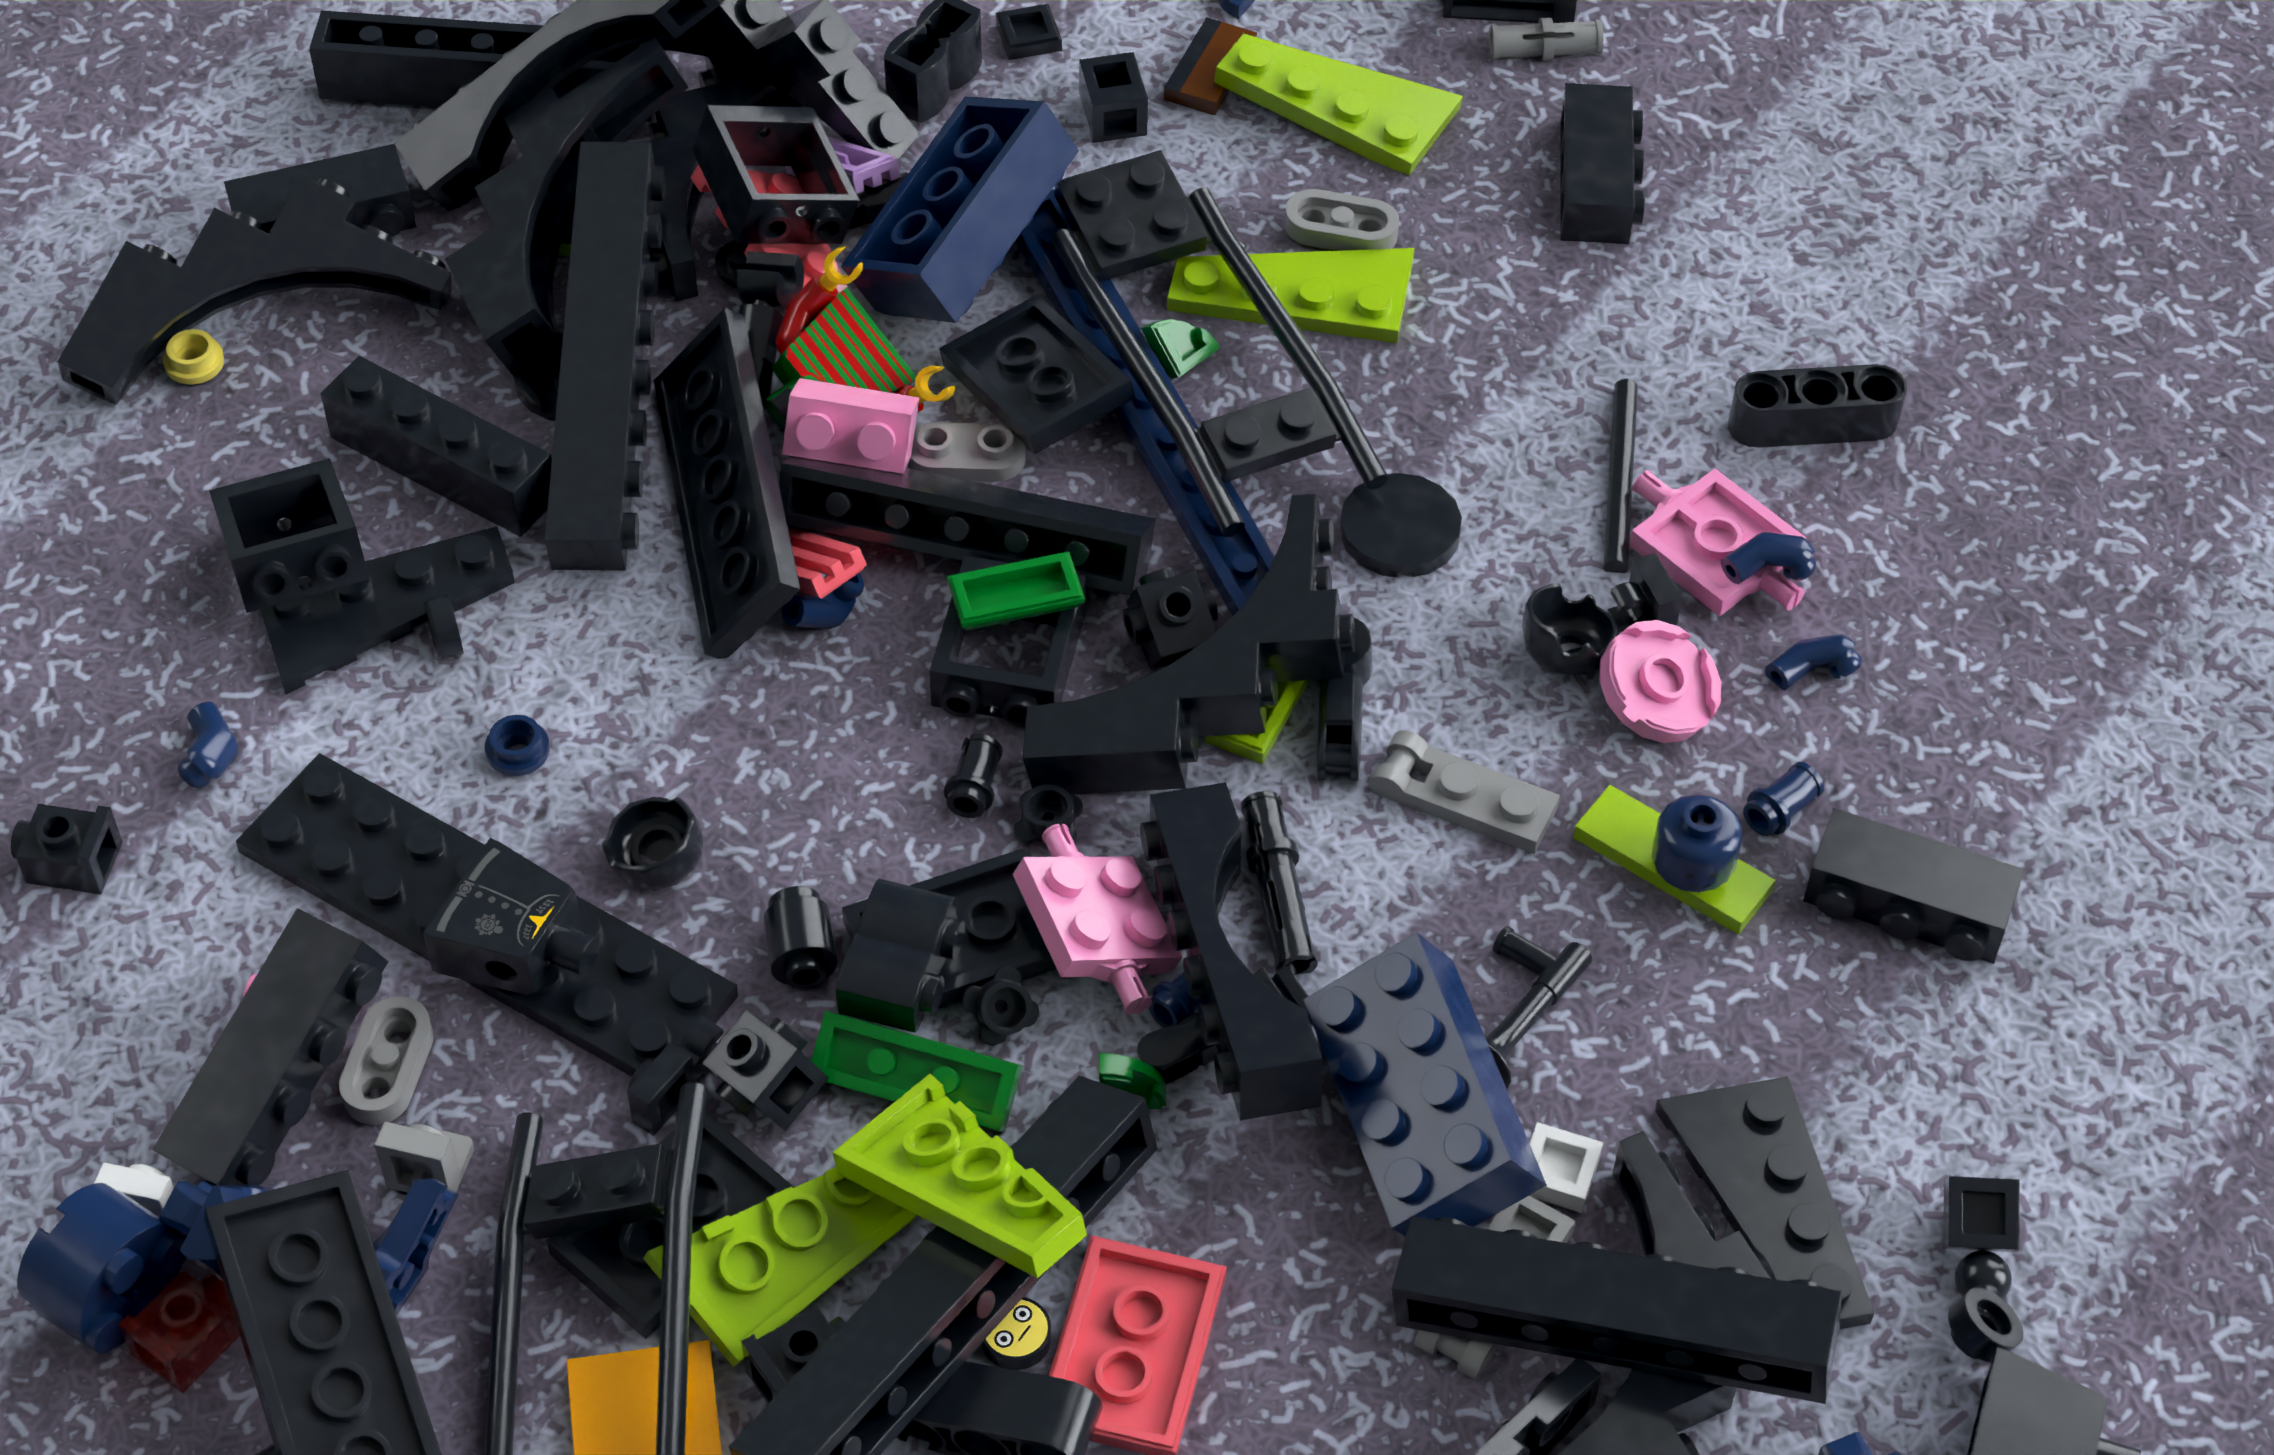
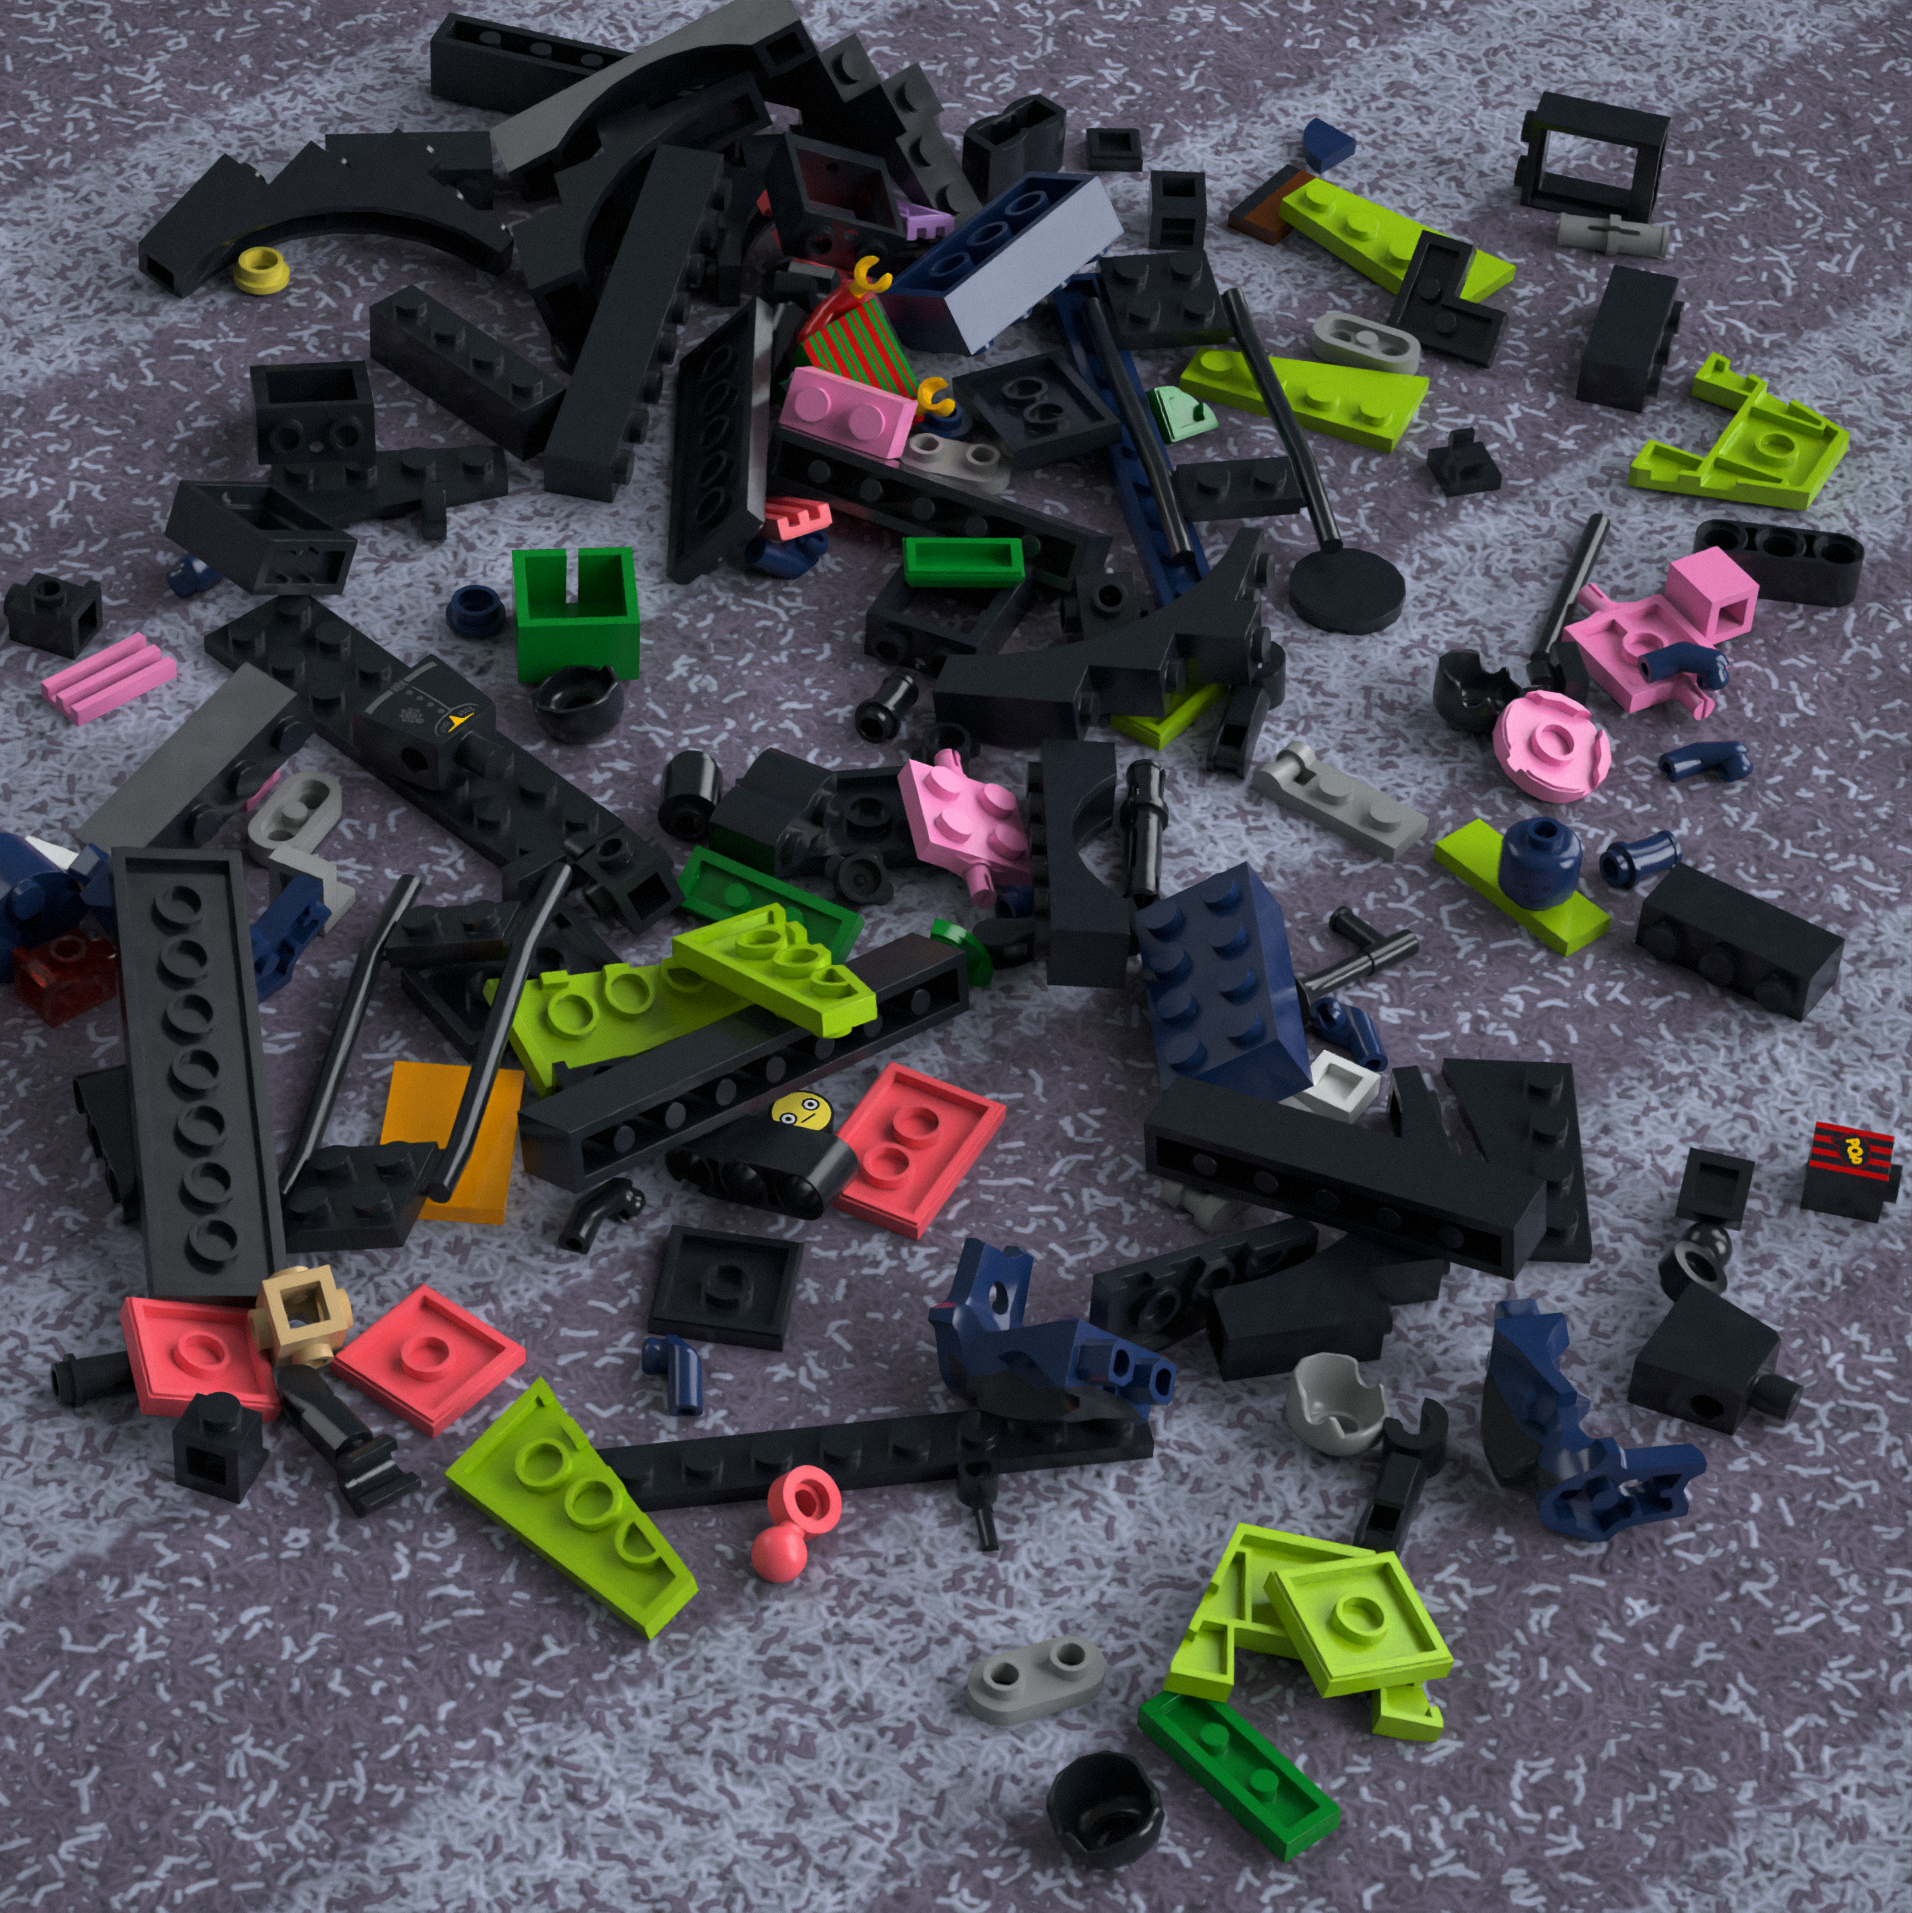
camera: 10 degrees right, 10 degrees down
(136, 908) = (111, 676): none -> bright pink tile
(323, 718) = (260, 538): none -> black window
(629, 753) = (593, 630): none -> green piece
(955, 410) = (955, 426): none -> dark blue plate
(1396, 169) = (1432, 305): none -> black plate
(1476, 348) = (1463, 465): none -> black tile
(1554, 1083) = (1350, 1030): none -> dark blue arm
(1768, 460) = (1712, 594): none -> bright pink brick
(1771, 271) = (1764, 455): none -> lime wing
(2104, 1156) = (1850, 1173): none -> black brick

